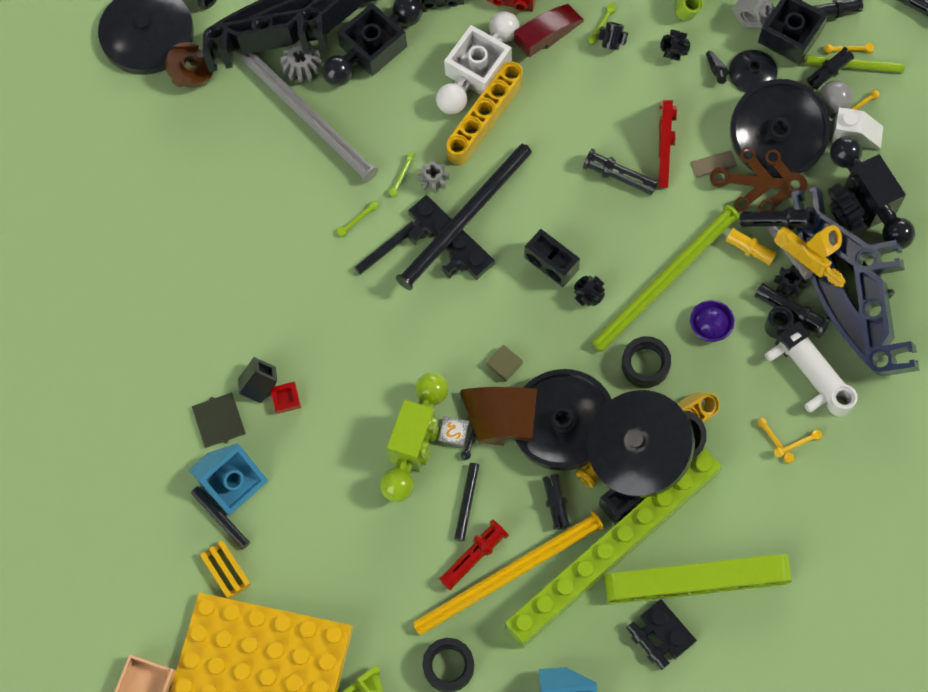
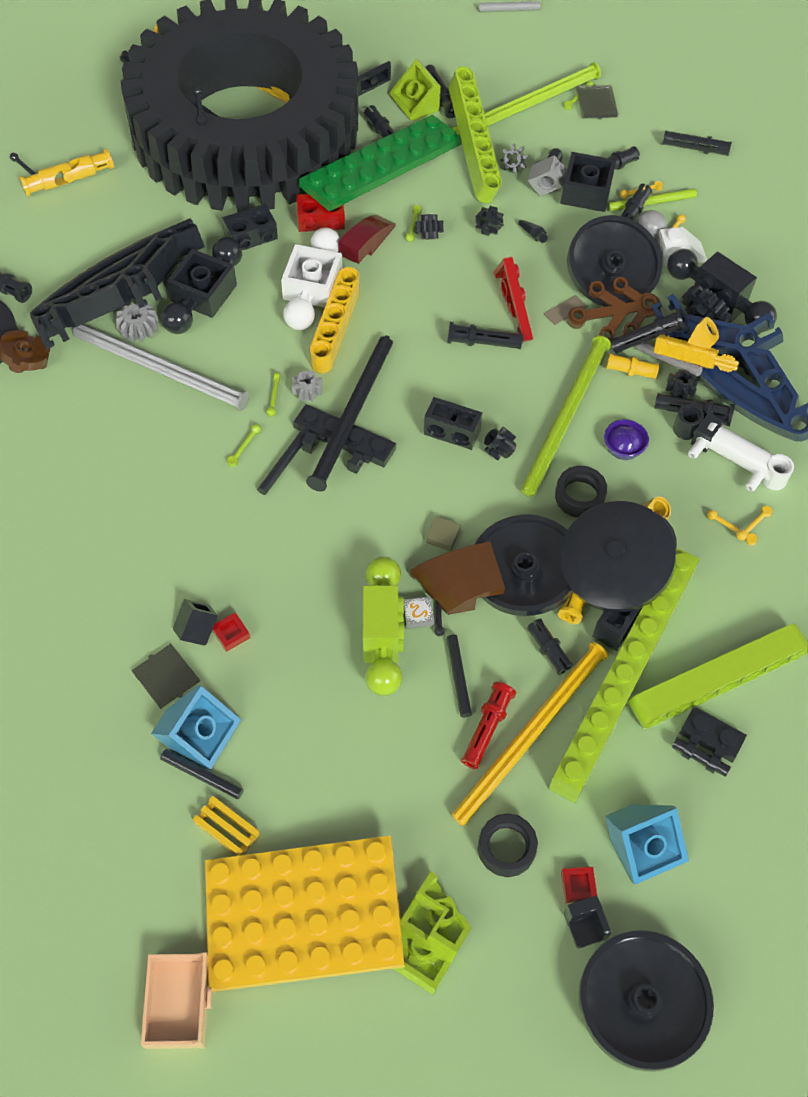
camera: 25 degrees left, 10 degrees down
(744, 76) = (562, 226): black dish -> none

